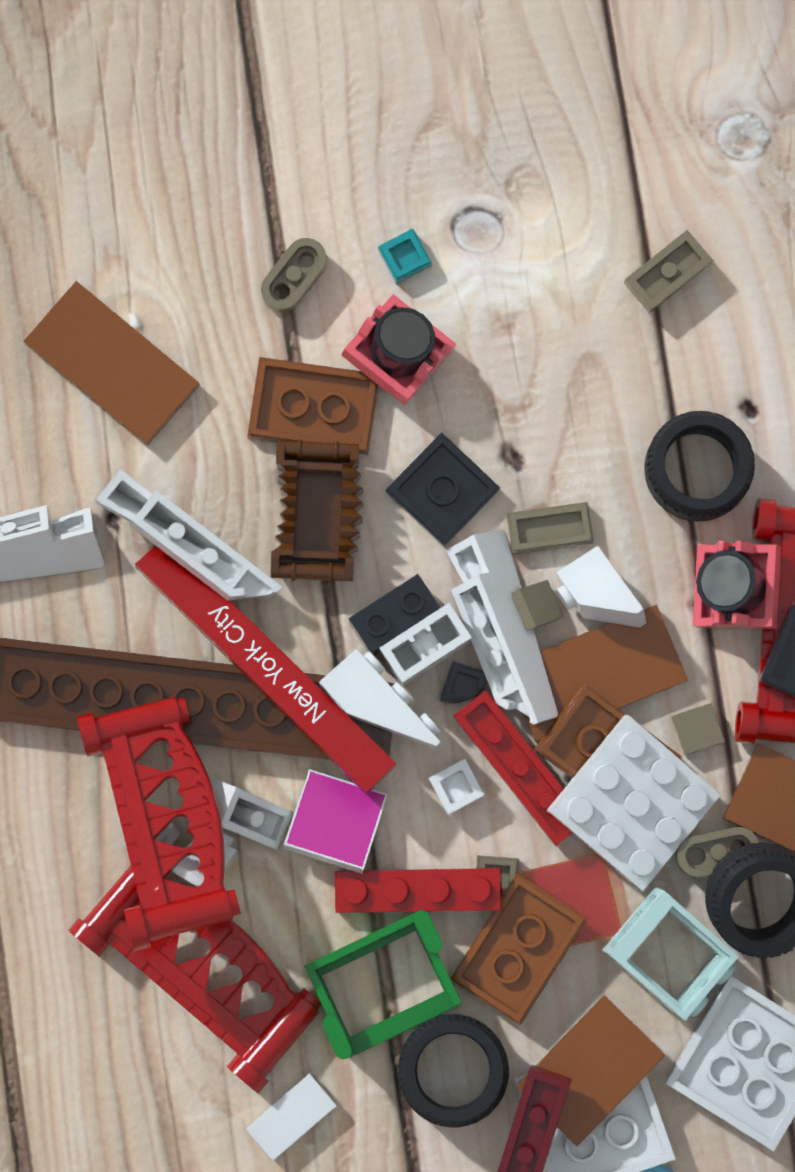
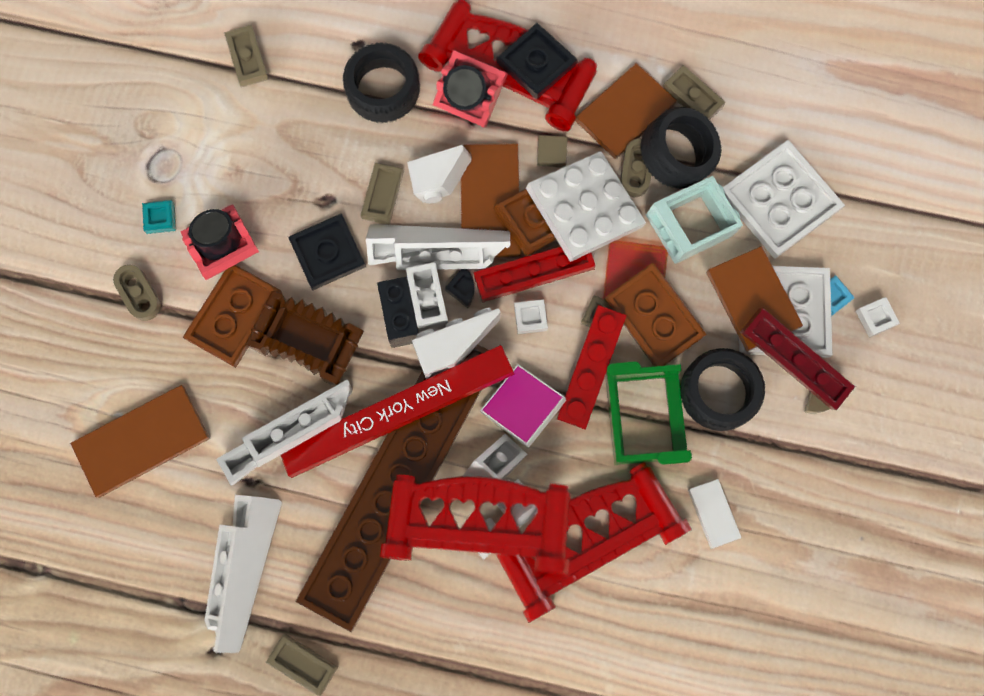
camera: 70 degrees left, 5 degrees down
(537, 605) = (430, 218): dark tan tile -> none

